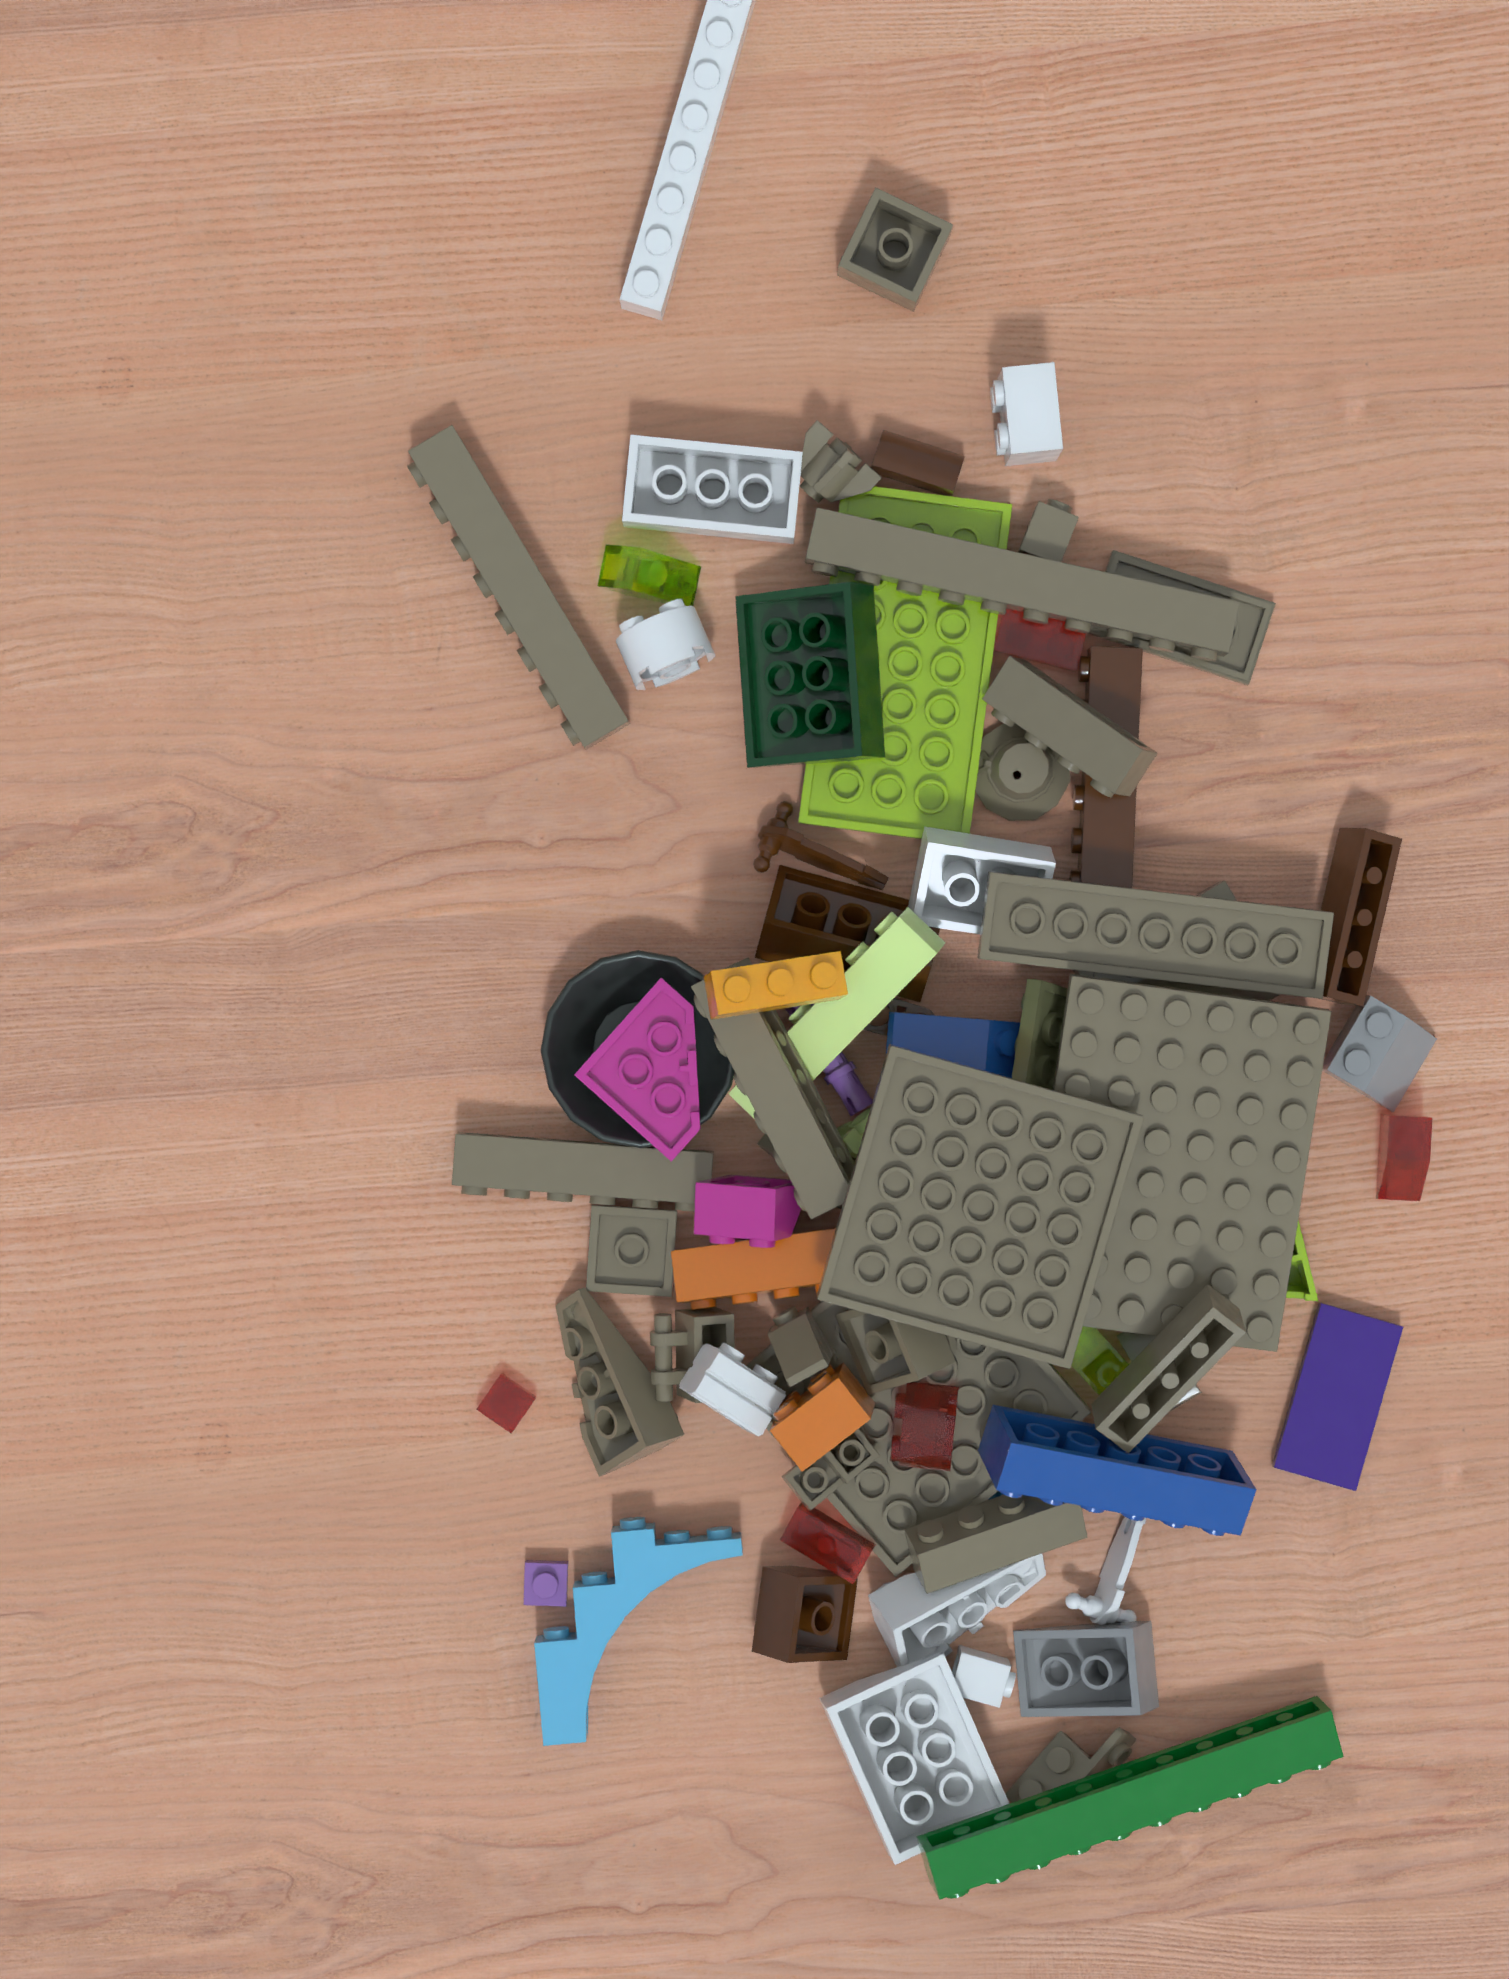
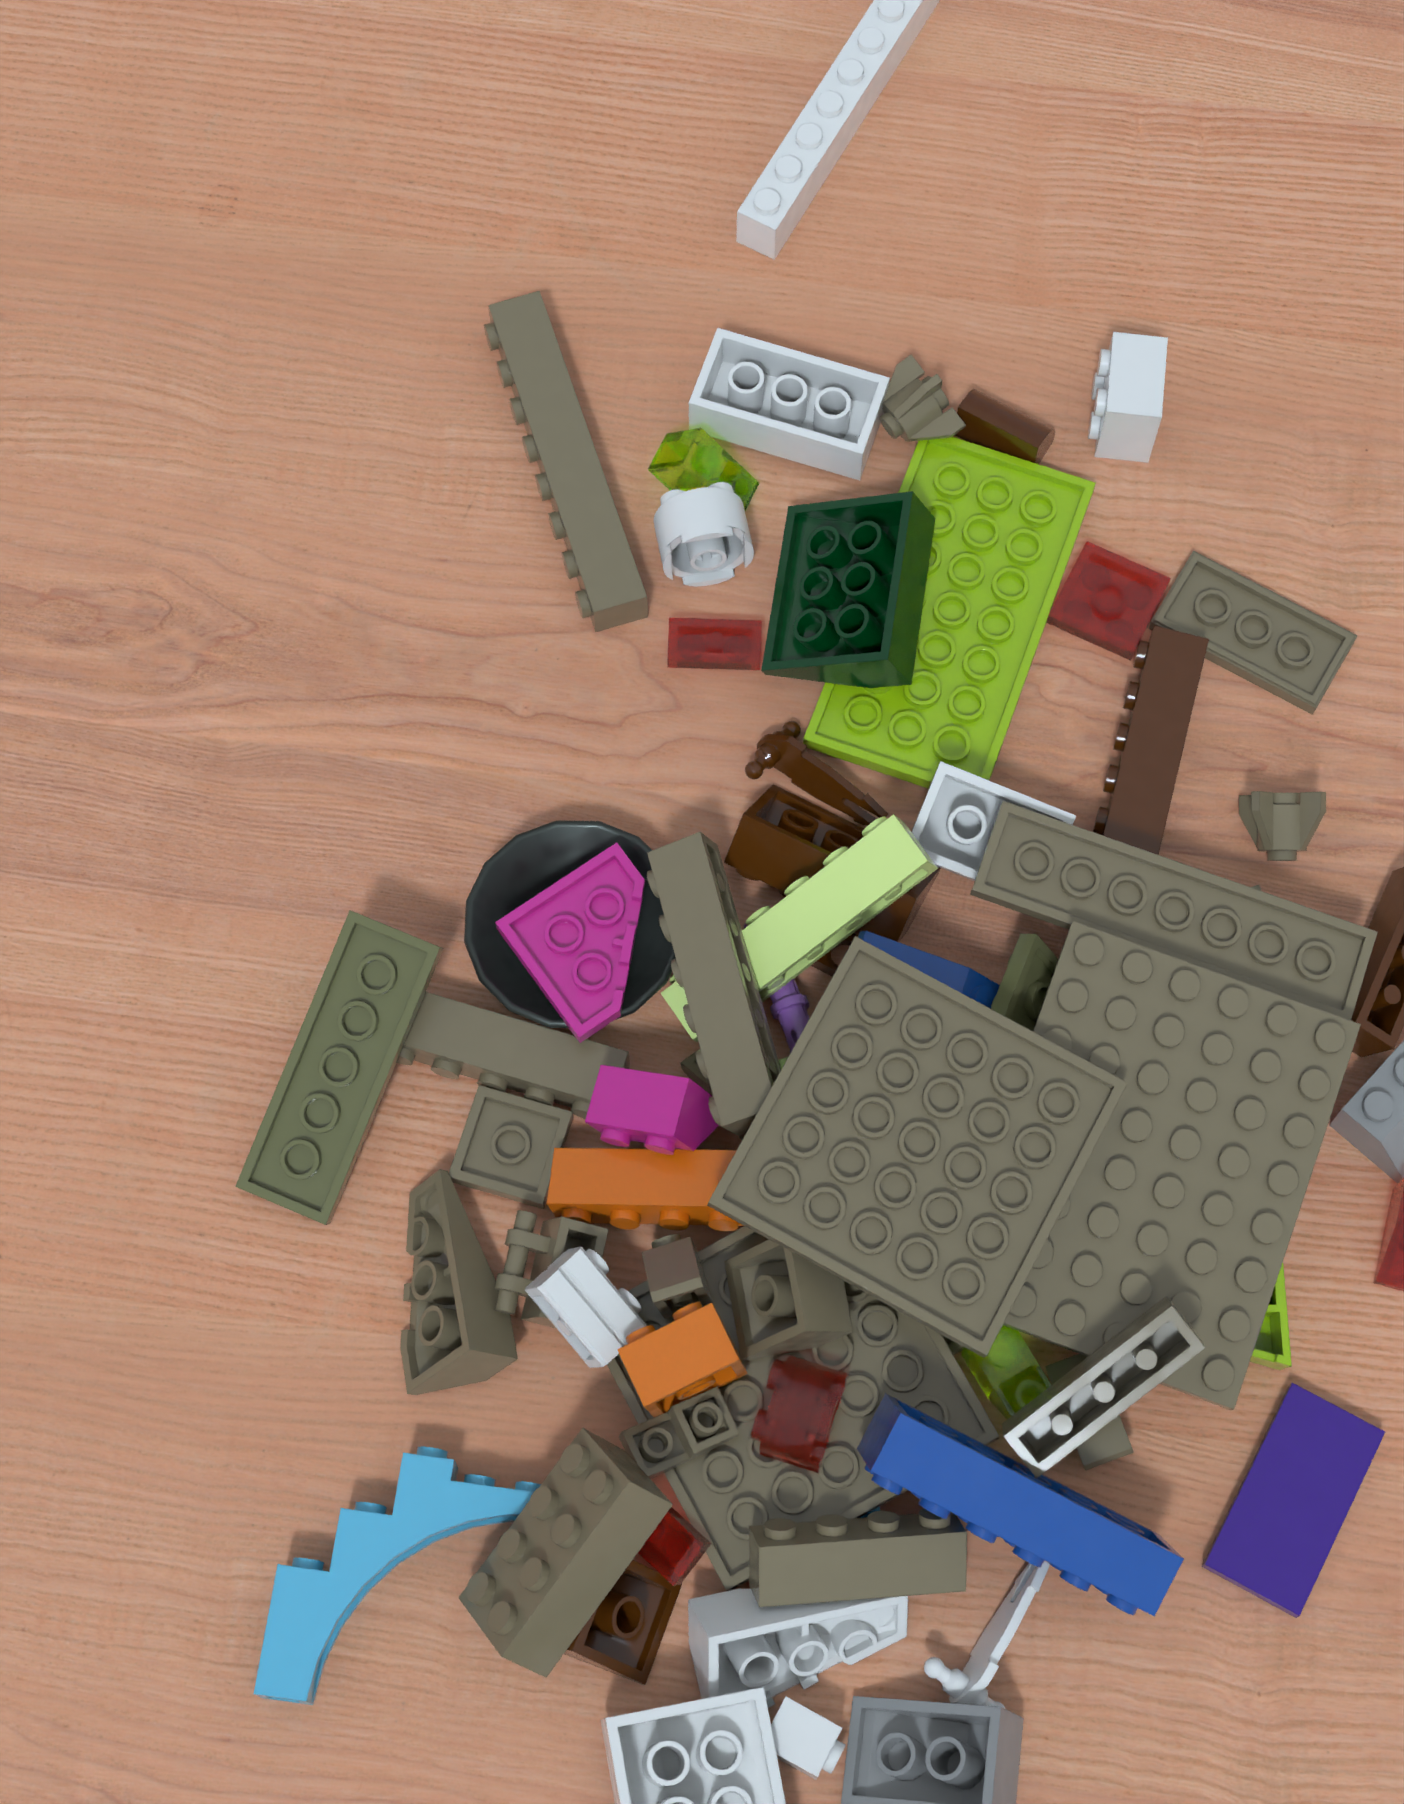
camera: 10 degrees right, 20 degrees down
(472, 1223) = (339, 1067): none -> olive plate
(506, 1403) = (324, 1287): clear red plate -> none
(545, 1583) = (312, 1507): medium lavender plate -> none
(697, 743) = (714, 644): none -> clear red plate
(763, 1588) = (564, 1552): none -> dark tan brick
(775, 985) = (740, 853): light orange brick -> none
(894, 249) = (1023, 230): dark tan brick -> none
(1021, 583) = (1098, 550): dark tan brick -> none
(1041, 778) = (1059, 762): dark tan hat -> none
(1049, 530) = (1127, 519): dark tan brick -> none
(1069, 727) = (1117, 693): dark tan brick -> none
(1236, 805) = (1282, 821): none -> dark tan brick

